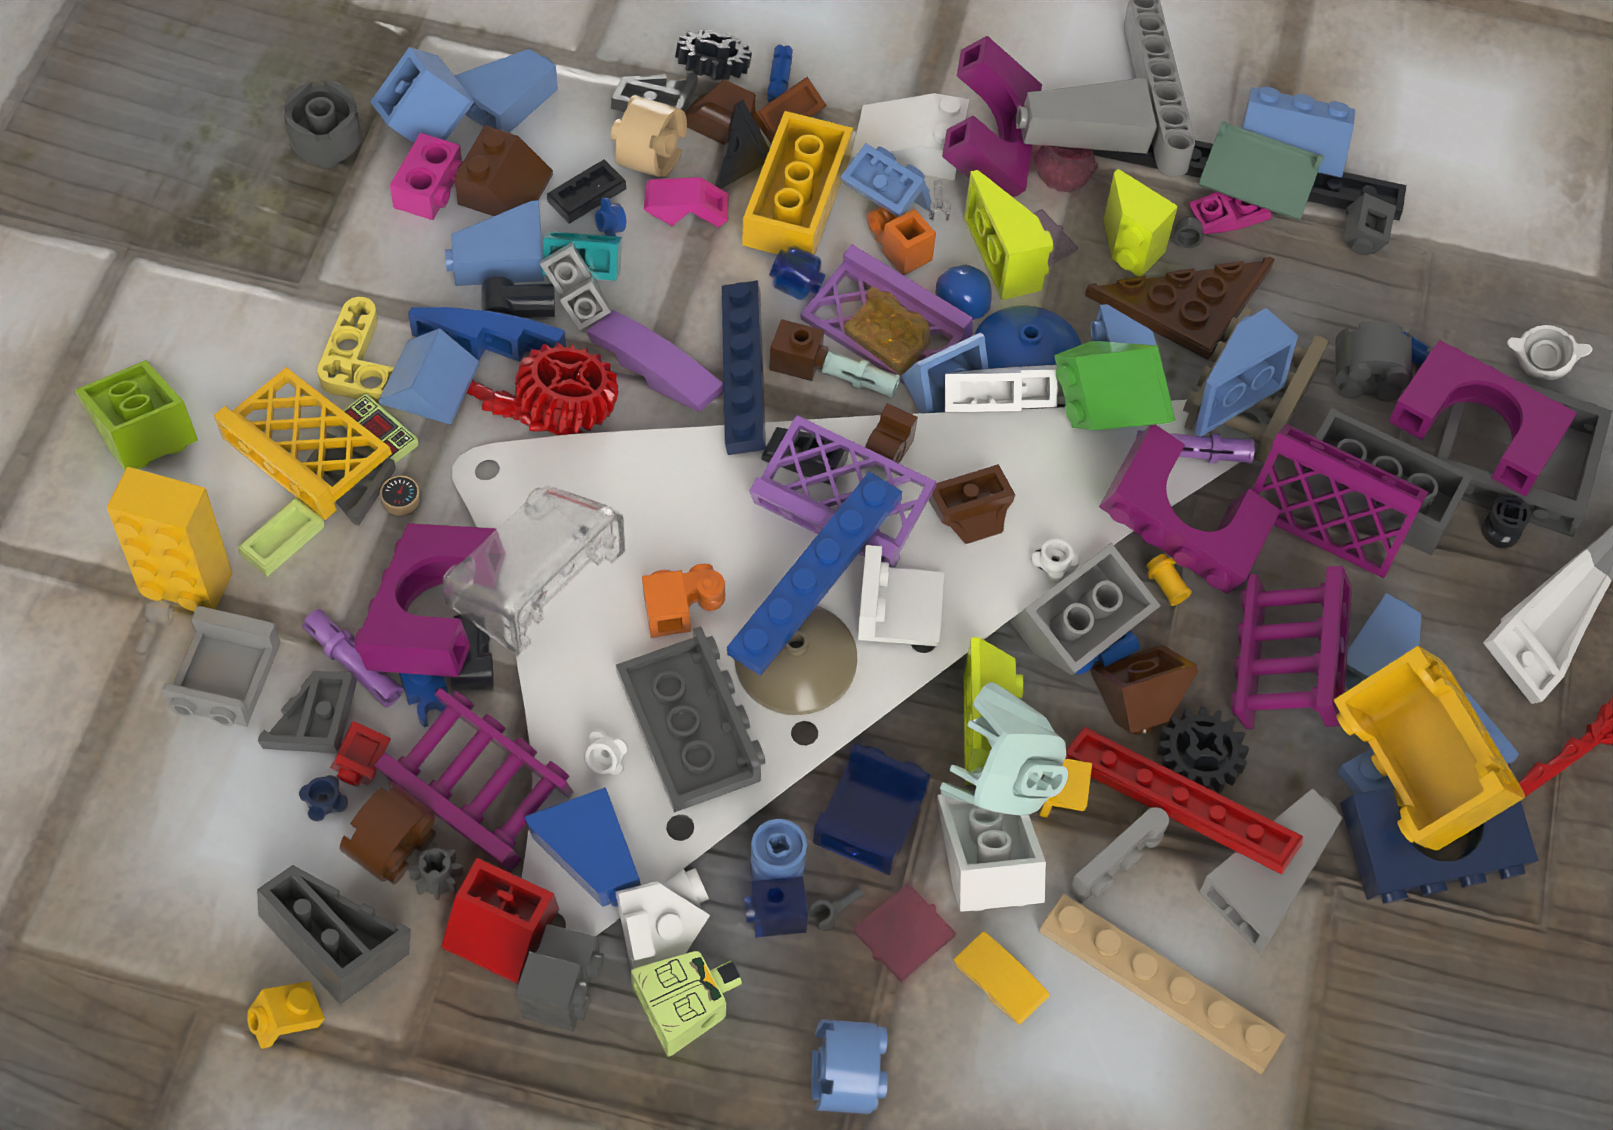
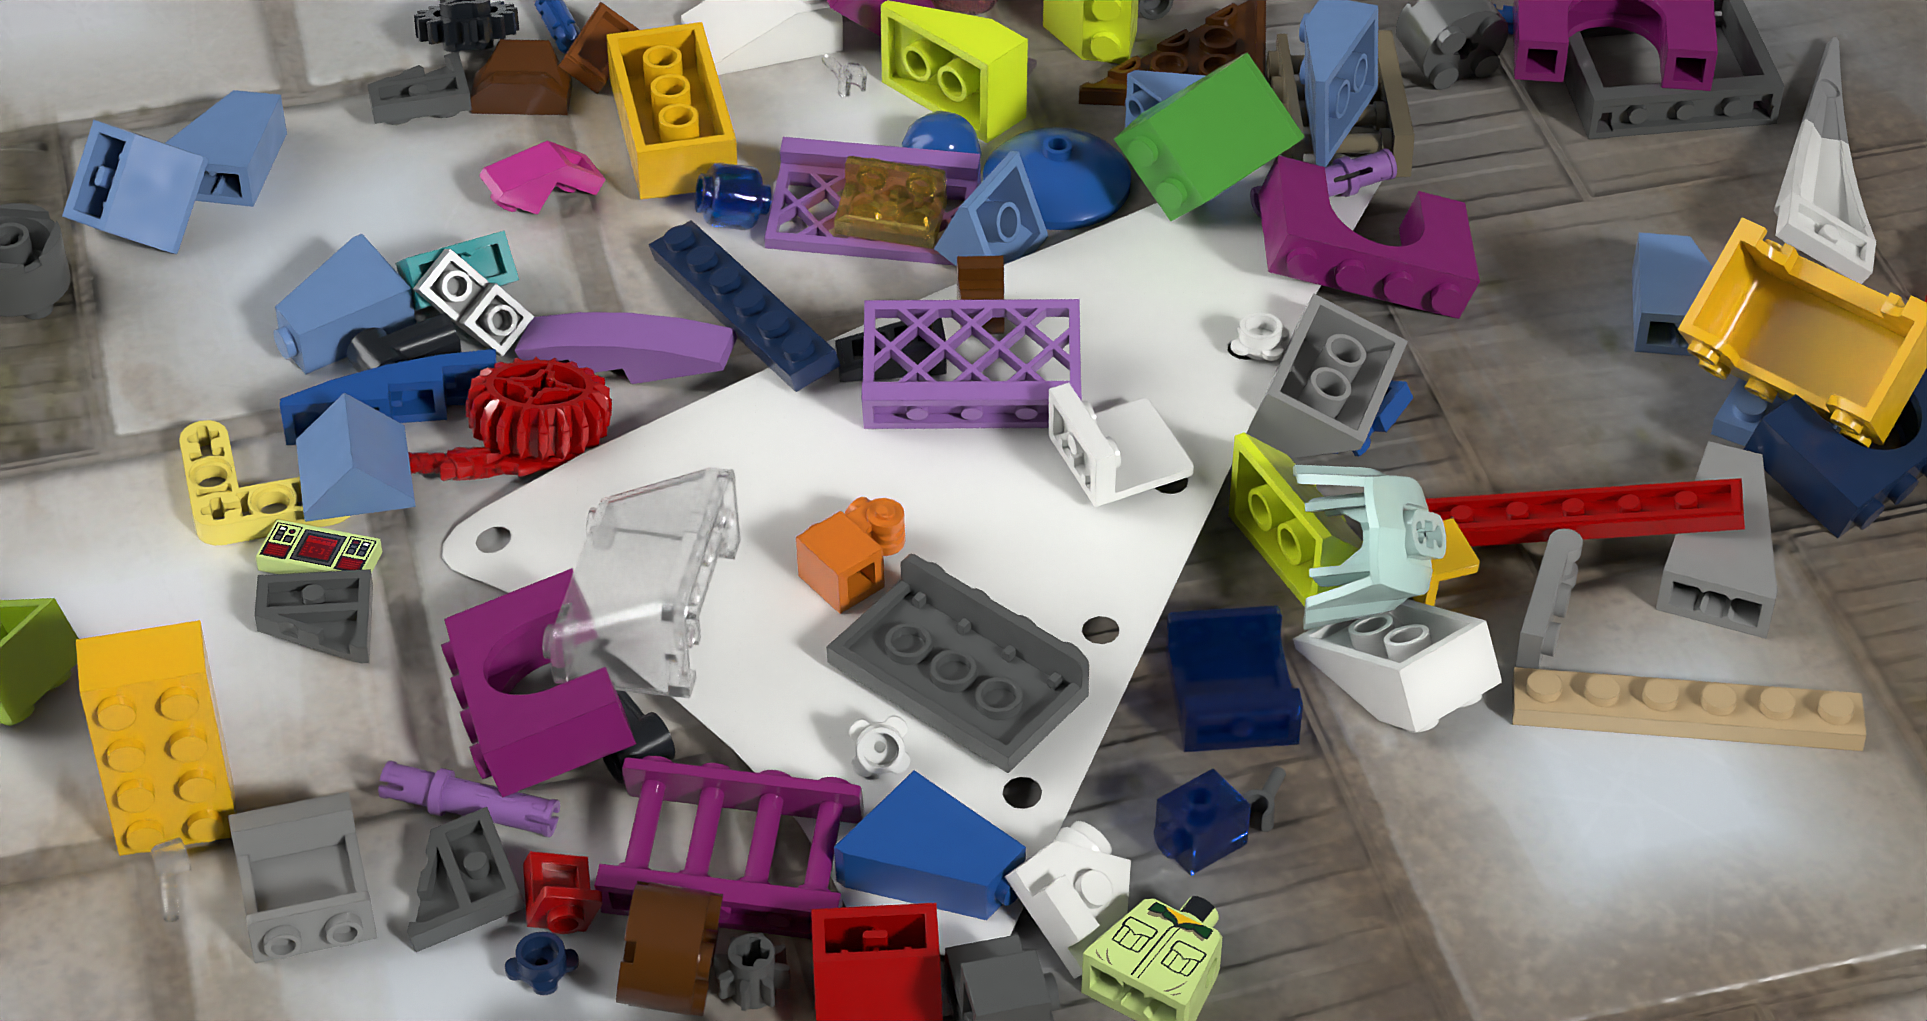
camera: 25 degrees left, 15 degrees down
(281, 537) = (273, 715): yellowish green tile -> none
(285, 467) = (232, 632): yellow fence -> none
(400, 495) = (400, 609): tile -> none
(422, 689) = (589, 793): blue plate -> none
(426, 176) = (191, 270): dark pink brick -> none
(500, 173) = (284, 232): reddish brown slope -> none
(586, 190) = (407, 213): black plate -> none
(610, 218) = (458, 224): blue plate -> none
(649, 136) = (452, 124): tan brick -> none
(743, 149) = (571, 96): black tile -> none
(778, 850) = (1161, 756): medium blue wheel -> none
(797, 350) = (794, 268): reddish brown brick -> none
(807, 676) = (1036, 556): dark tan dish -> none
(814, 573) = (1007, 446): blue plate -> none
(848, 1067) = (1415, 934): medium blue brick -> none
(861, 374) = (847, 269): light aqua pin -> none
(885, 181) = (782, 57): medium blue bracket -> none
(904, 932) = (1362, 791): clear pink piece -> none
(905, 239) = (840, 111): orange brick -> none
(974, 503) = (1129, 318): reddish brown slope -> none
(1001, 977) = (1522, 776): yellow slope -> none
(1003, 389) = (1072, 208): white slope -> none
(1144, 687) = (1447, 433): reddish brown slope -> none
(1163, 571) = (1392, 321): yellow pin -> none
(1202, 744) = (1555, 458): black gear -> none
(1328, 663) = (1610, 281): magenta fence -> none
(1354, 474) = (1530, 128): magenta fence -> none
(1442, 480) = (1549, 138): dark grey brick -> none
(1506, 521) = (1706, 121): black wheel -> none

